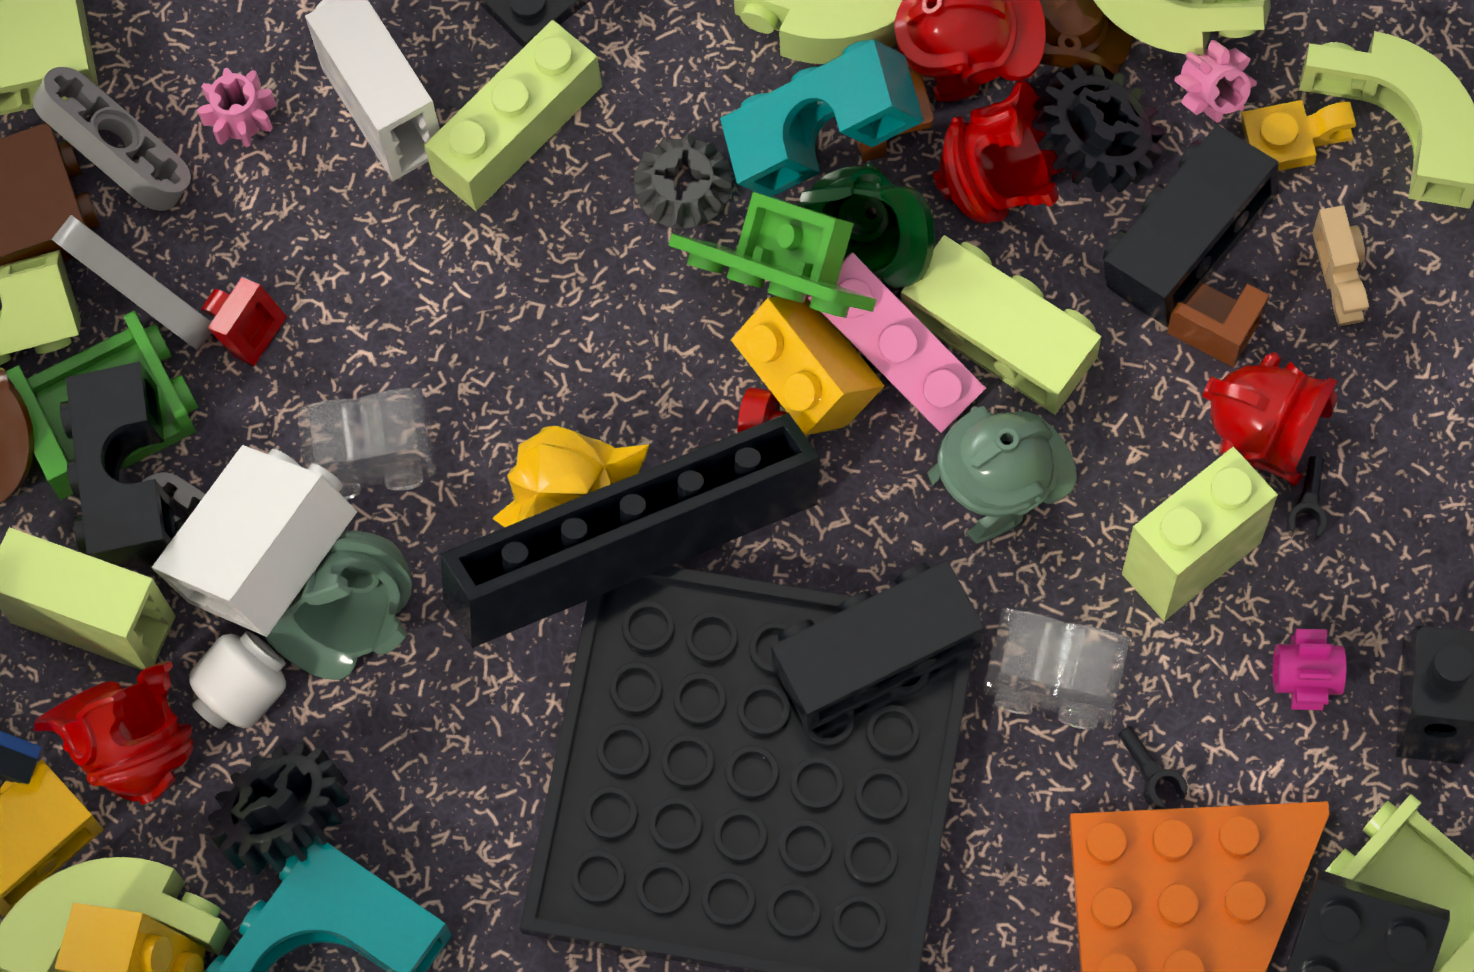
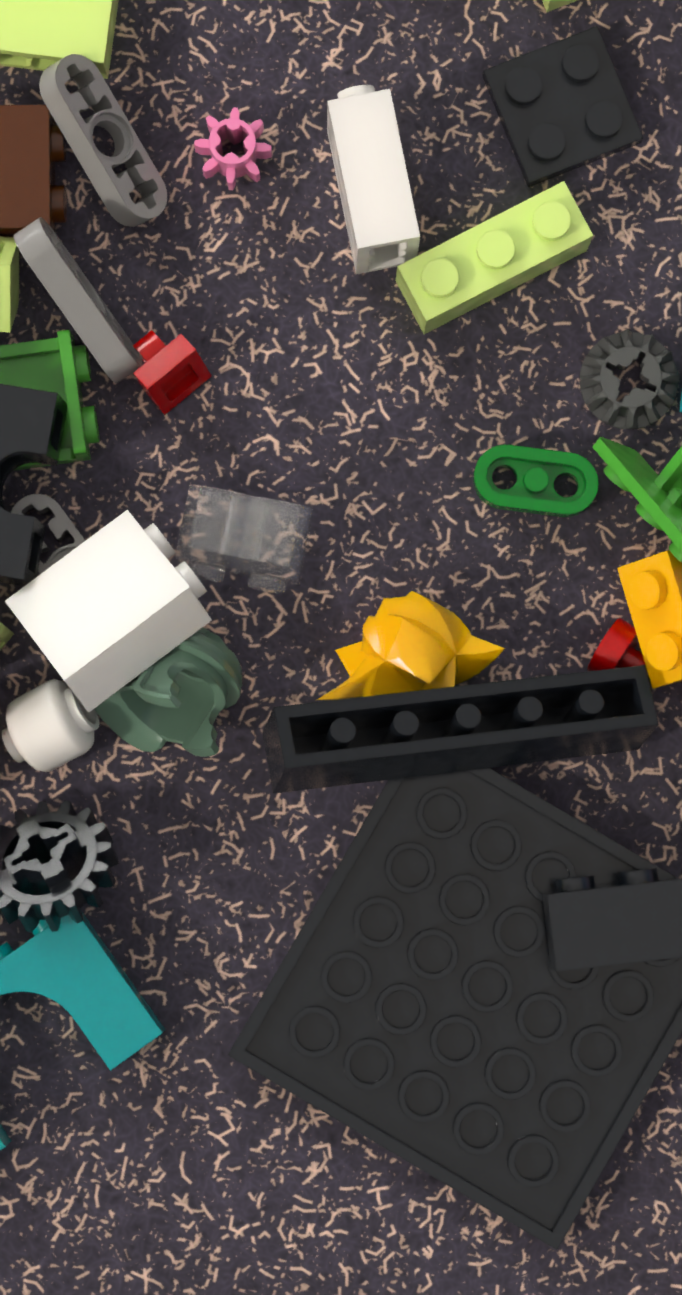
camera: 10 degrees right, 15 degrees up
(625, 292) = (535, 477): none -> green plate

